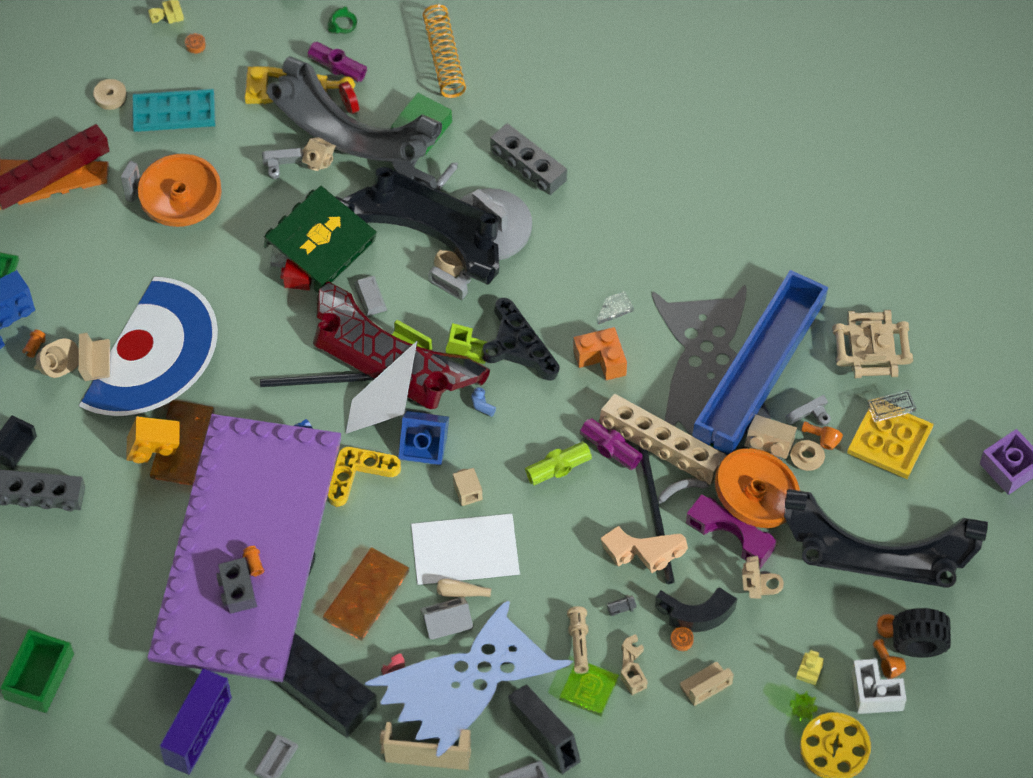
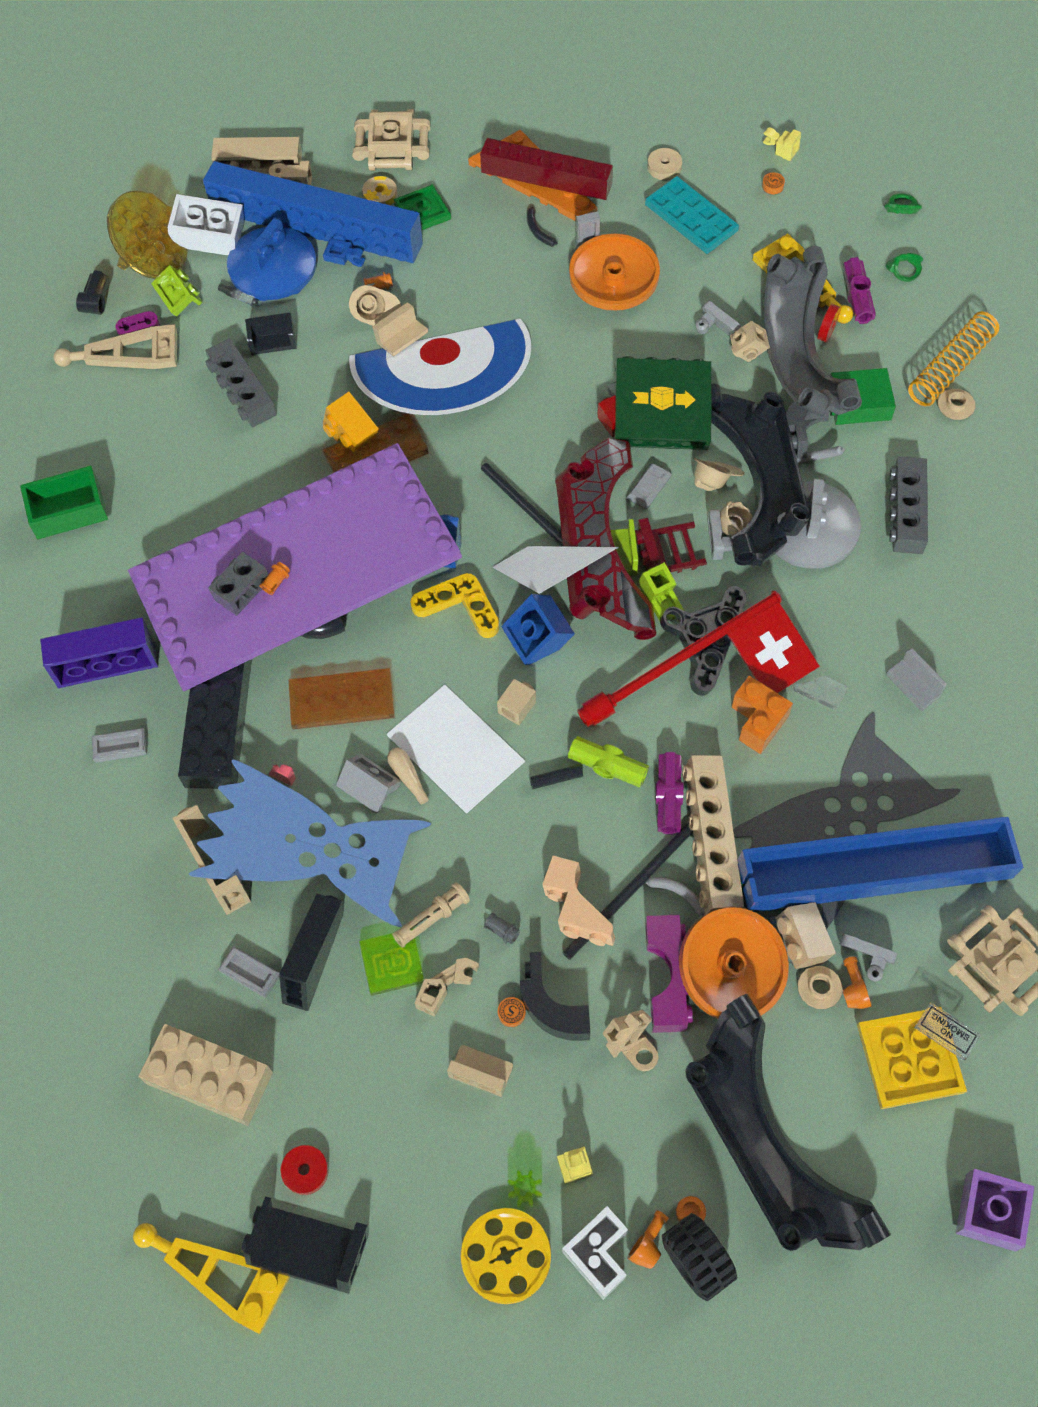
camera: 55 degrees right, 5 degrees up
(87, 213) = (536, 231): none -> black piece
(402, 249) = (713, 475): none -> tan piece
(428, 327) = (651, 549): none -> dark red plate
(477, 83) = (953, 411): none -> tan piece
(479, 402) = (616, 650): medium blue arm -> none
(541, 502) = (556, 776): none -> black piece
(551, 311) = (761, 637): none -> flag
(654, 249) = (917, 680): none -> light grey panel

